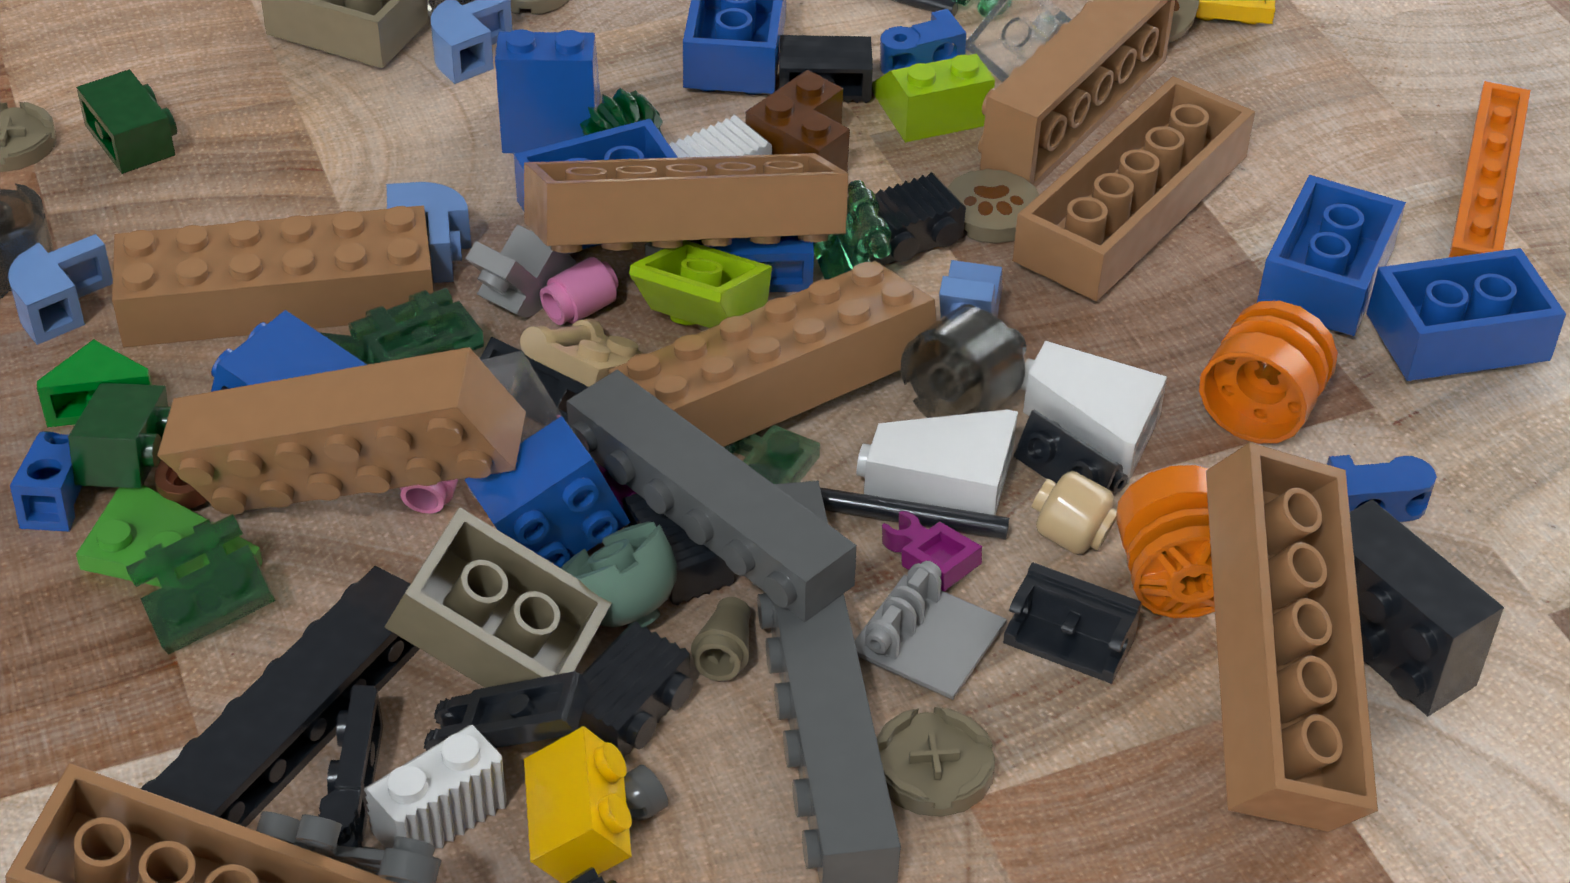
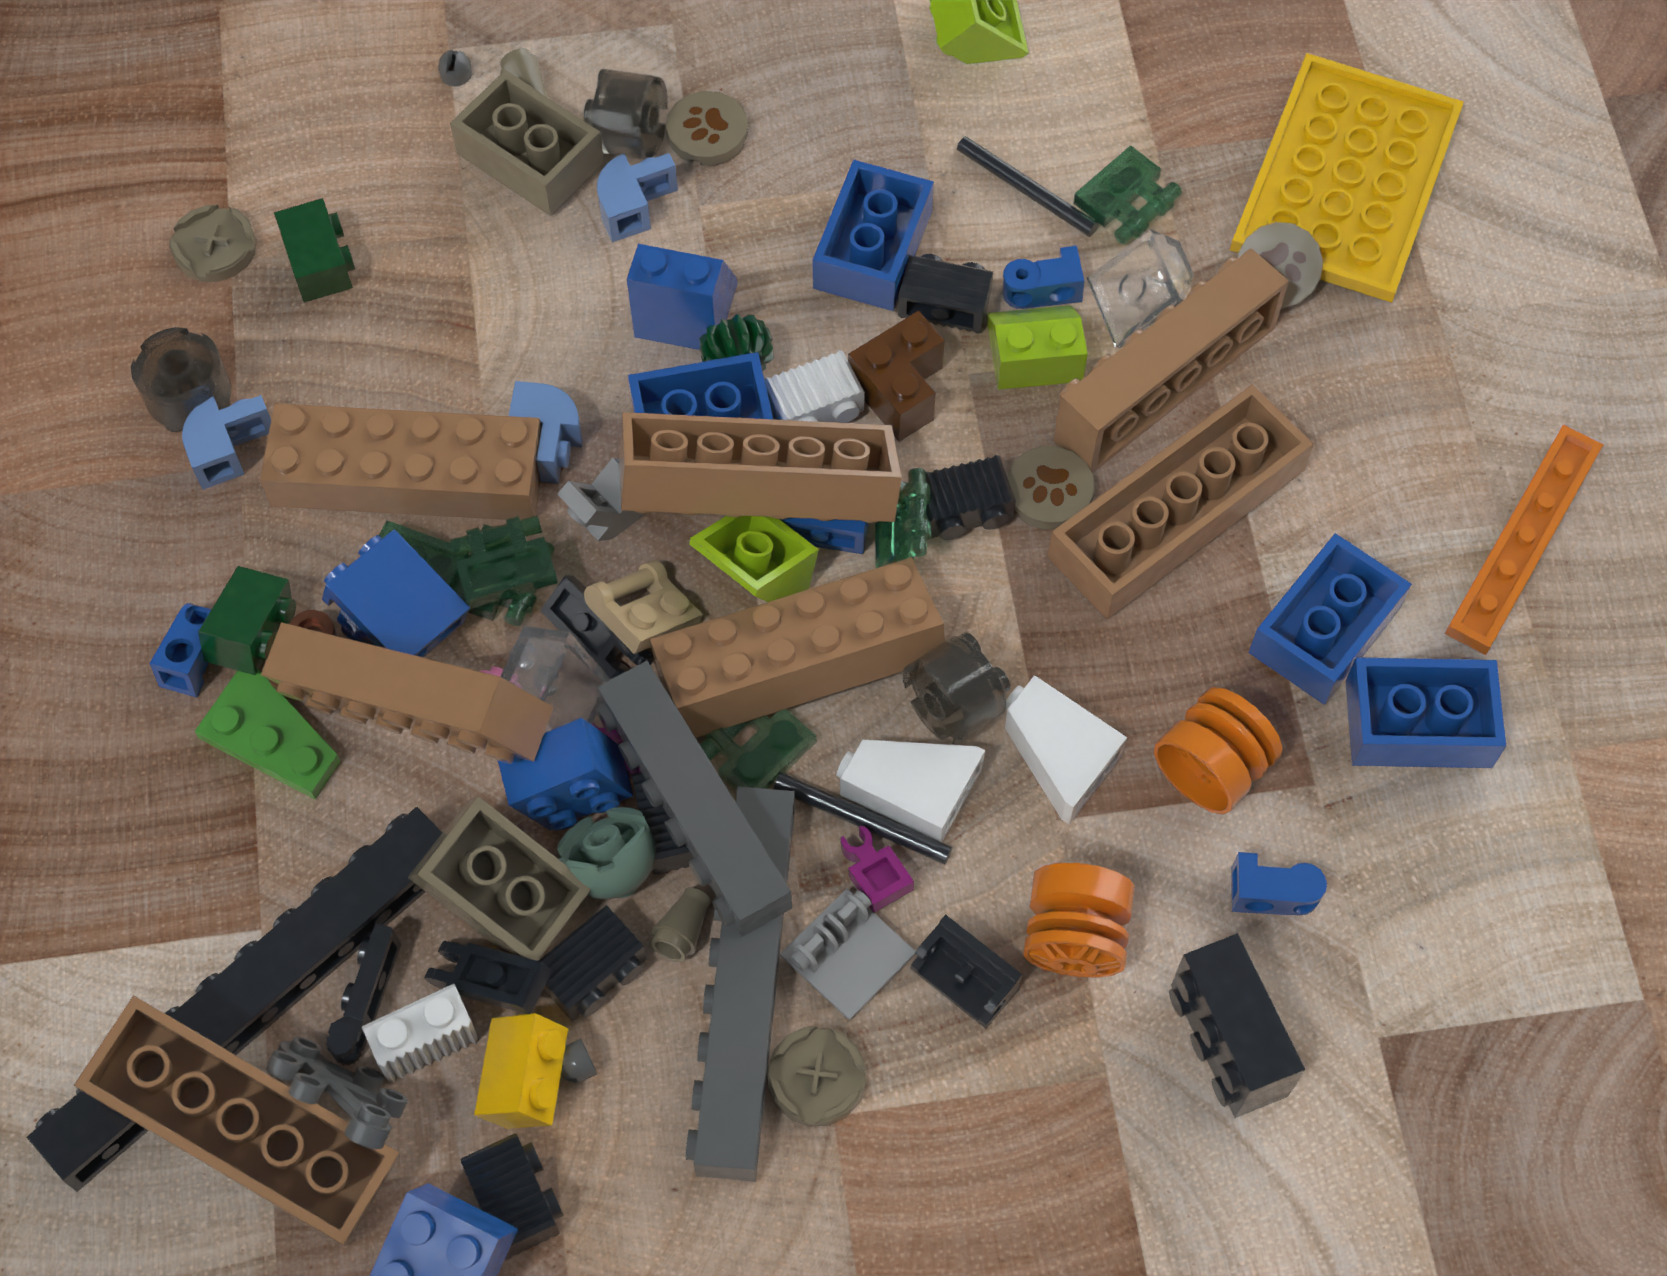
camera: 15 degrees right, 20 degrees up
(73, 382) = (231, 547): green slope -> none
(207, 597) = (286, 801): clear green plate -> none
(579, 291) = (655, 530): bright pink brick -> none
(973, 285) = (987, 611): medium blue brick -> none
(1056, 451) = (1011, 784): black hinge -> none
(1074, 512) = (1005, 858): tan head -> none
(1289, 640) = (1117, 1056): medium nougat brick -> none

